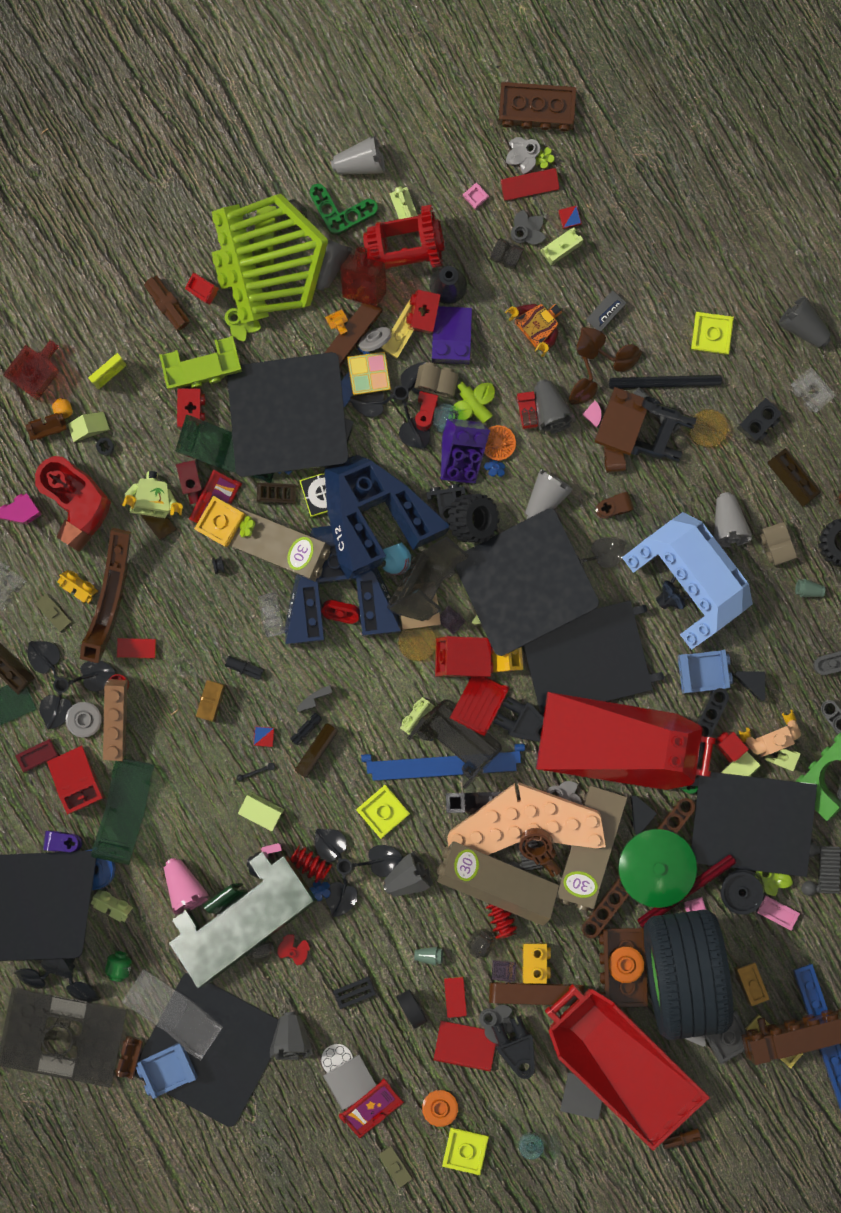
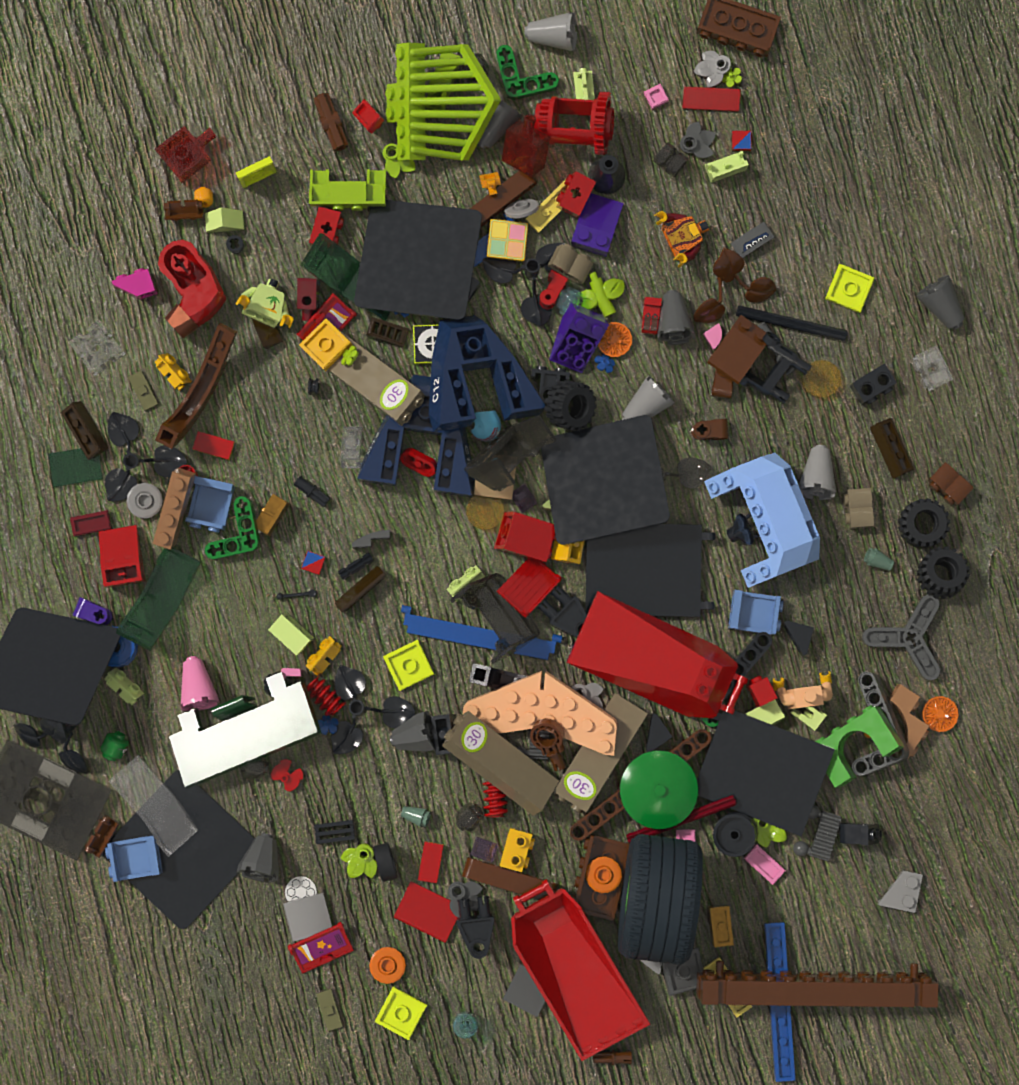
camera: 15 degrees right, 0 degrees up
(148, 706) = (210, 504): none -> medium blue panel
(188, 733) = (240, 540): none -> green beam
(300, 816) = (327, 648): none -> yellow hinge
(386, 1017) = (360, 864): none -> lime plate
(430, 863) = (440, 726): none -> black brick

